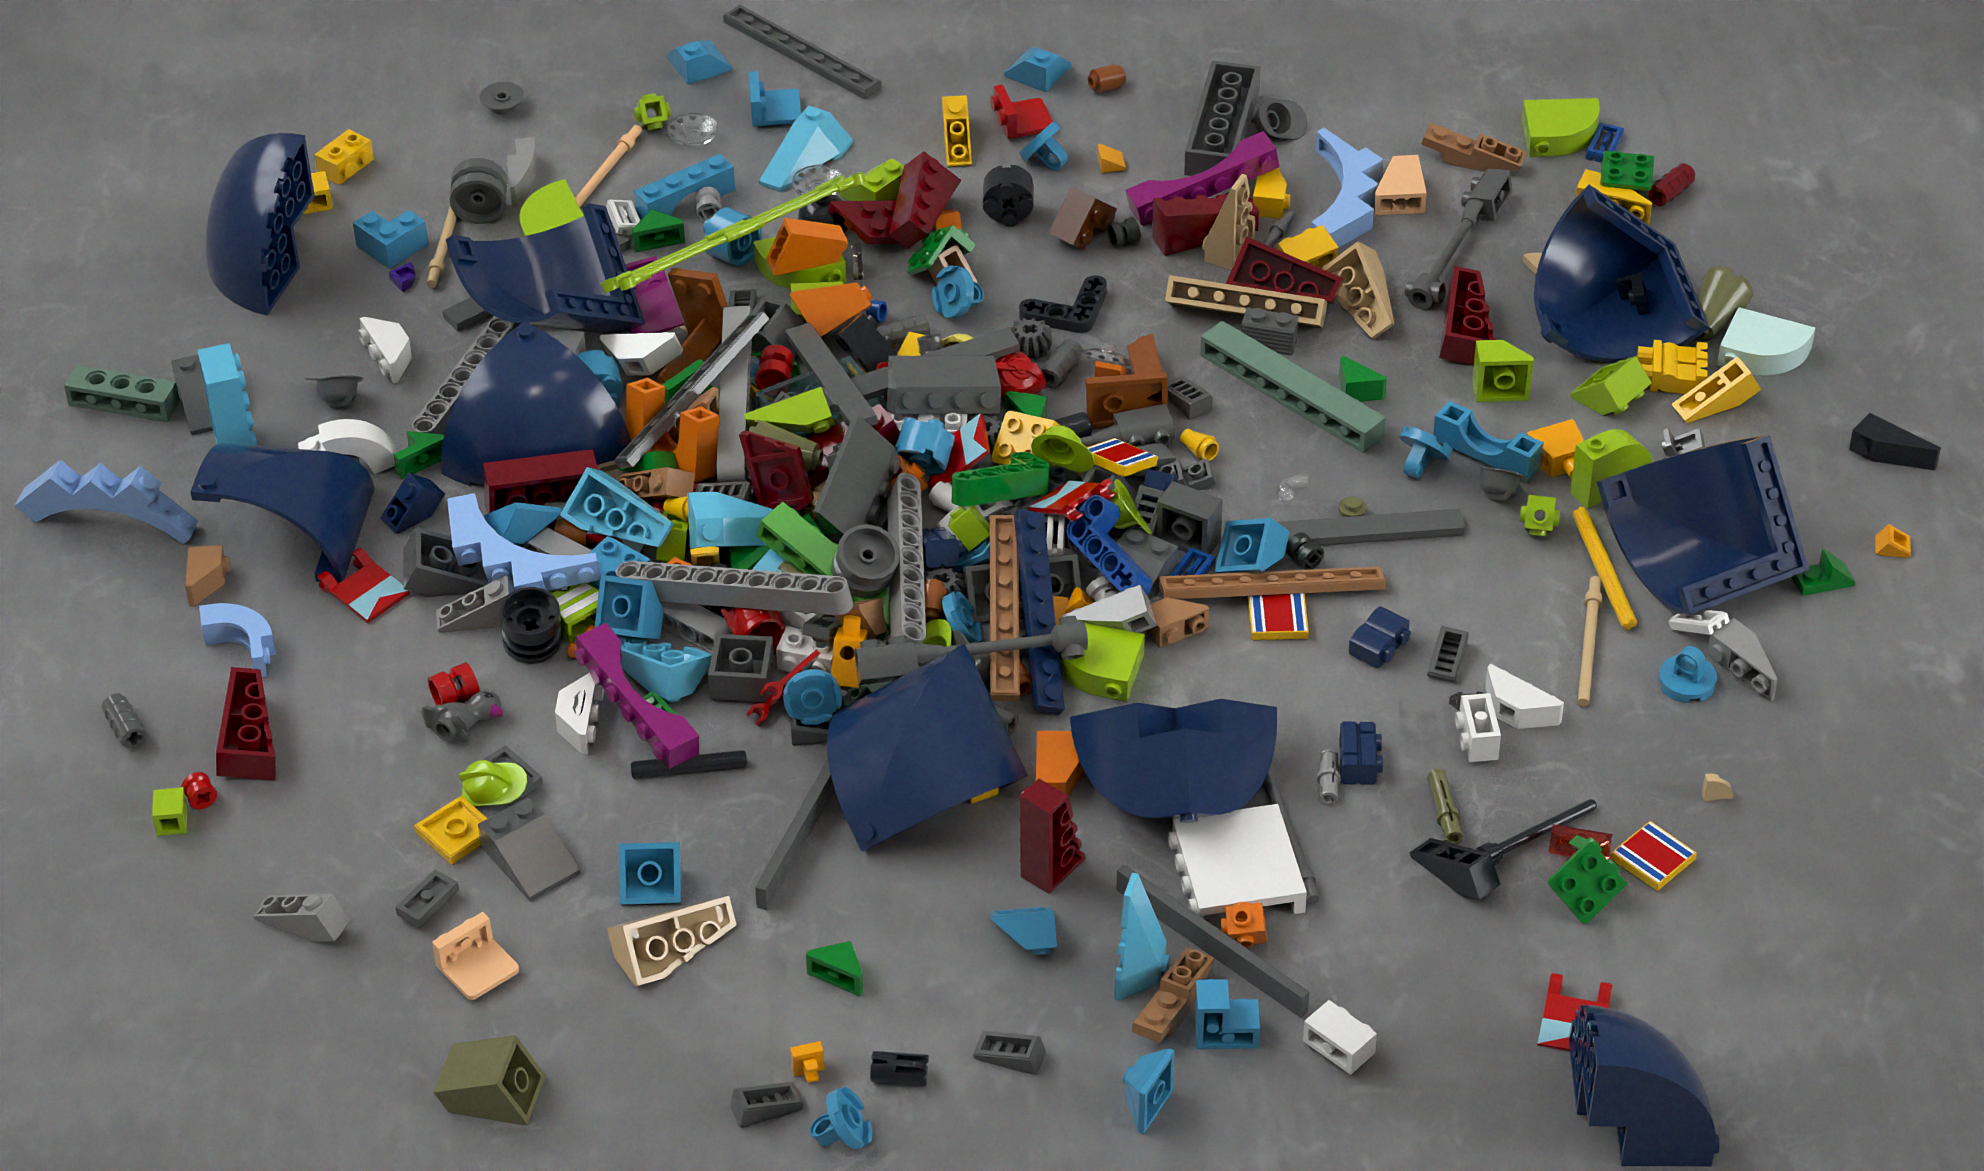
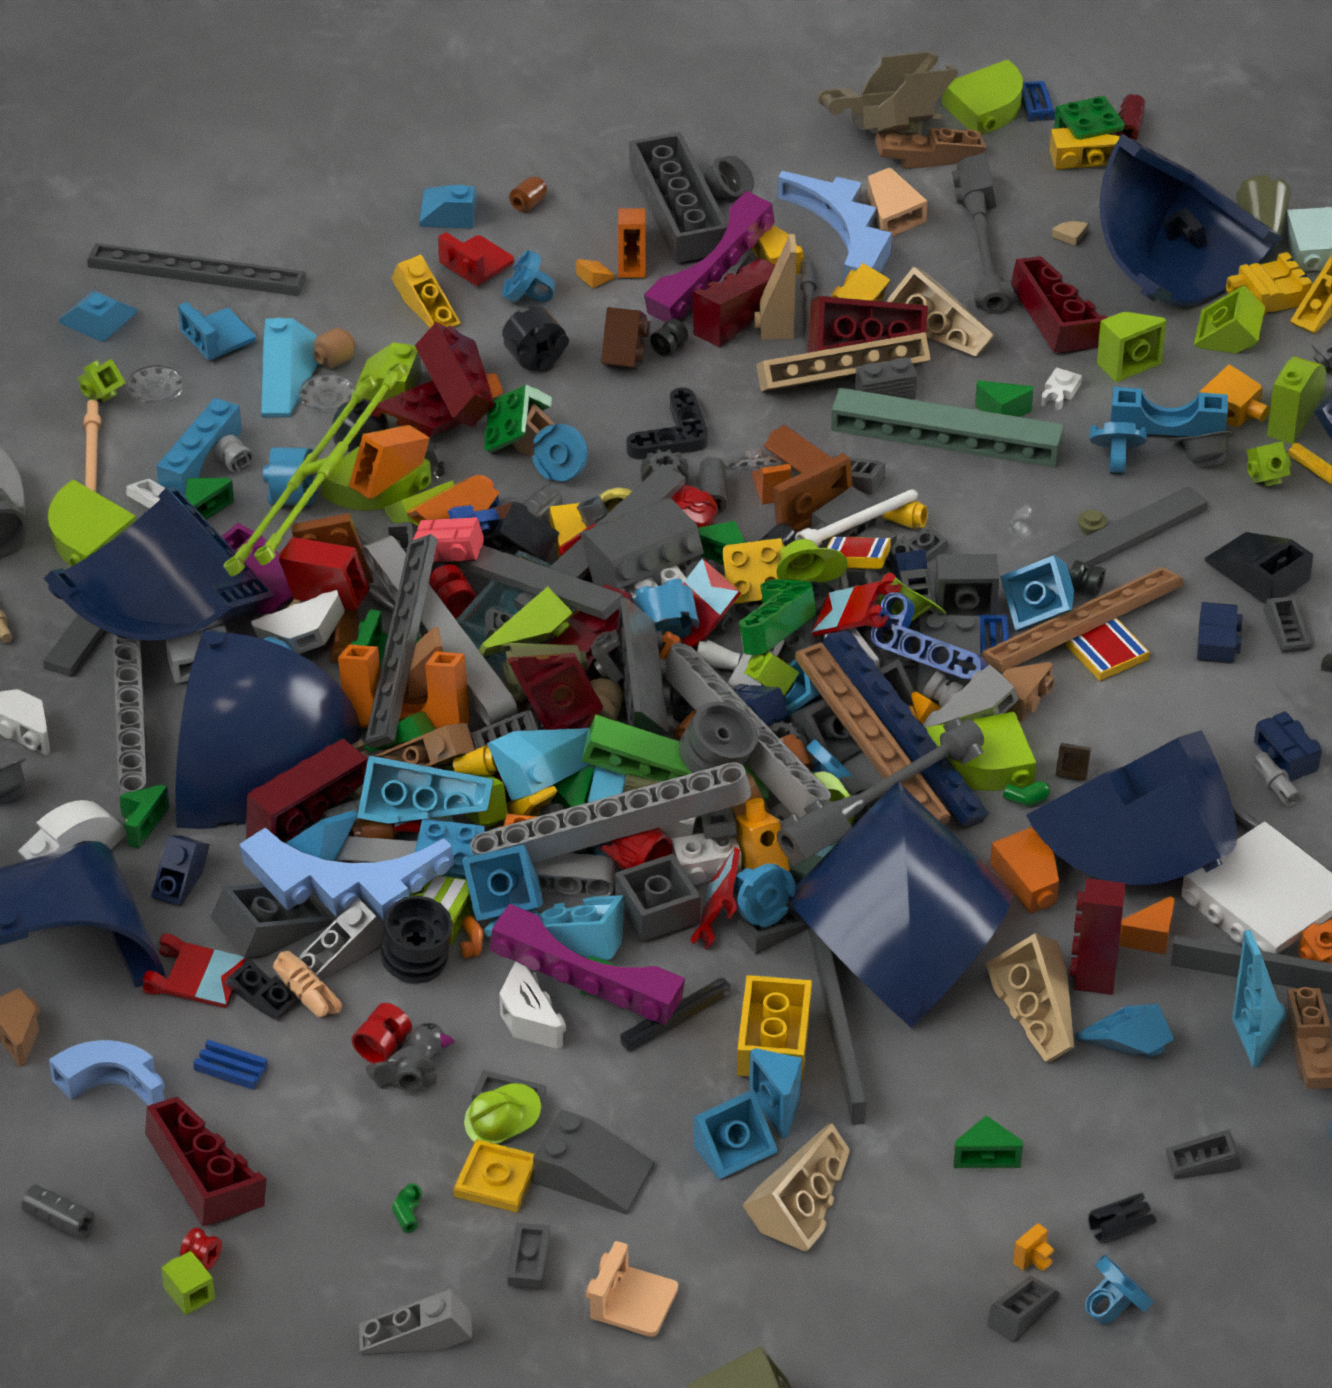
camera: 30 degrees left, 0 degrees up
(331, 648) = (233, 1060): none -> blue tile
(369, 823) = (405, 1205): none -> green arm
(399, 619) = (260, 991): none -> black slope
(430, 628) = (306, 985): none -> light nougat hinge
(678, 313) = (323, 568): none -> red brick
(708, 852) = (777, 1086): none -> dark azure slope
(746, 804) = (774, 1018): none -> yellow brick
(796, 326) = (457, 538): none -> coral brick
(828, 318) = (485, 517): none -> blue bracket
(850, 148) = (334, 347): none -> medium nougat head
(982, 856) = (1036, 990): none -> tan wedge
(1093, 433) = (818, 536): none -> white piece
(1101, 702) = (1028, 795): none -> green arm
(1117, 849) = (1149, 927): none -> orange slope
(1156, 143) = (631, 242): none -> orange slope
(1167, 692) = (1073, 761): none -> dark brown tile
(1422, 387) = (1059, 386): none -> white plate
(1464, 102) = (895, 95): none -> dark tan piece
(1465, 598) = (1263, 564): none -> black slope

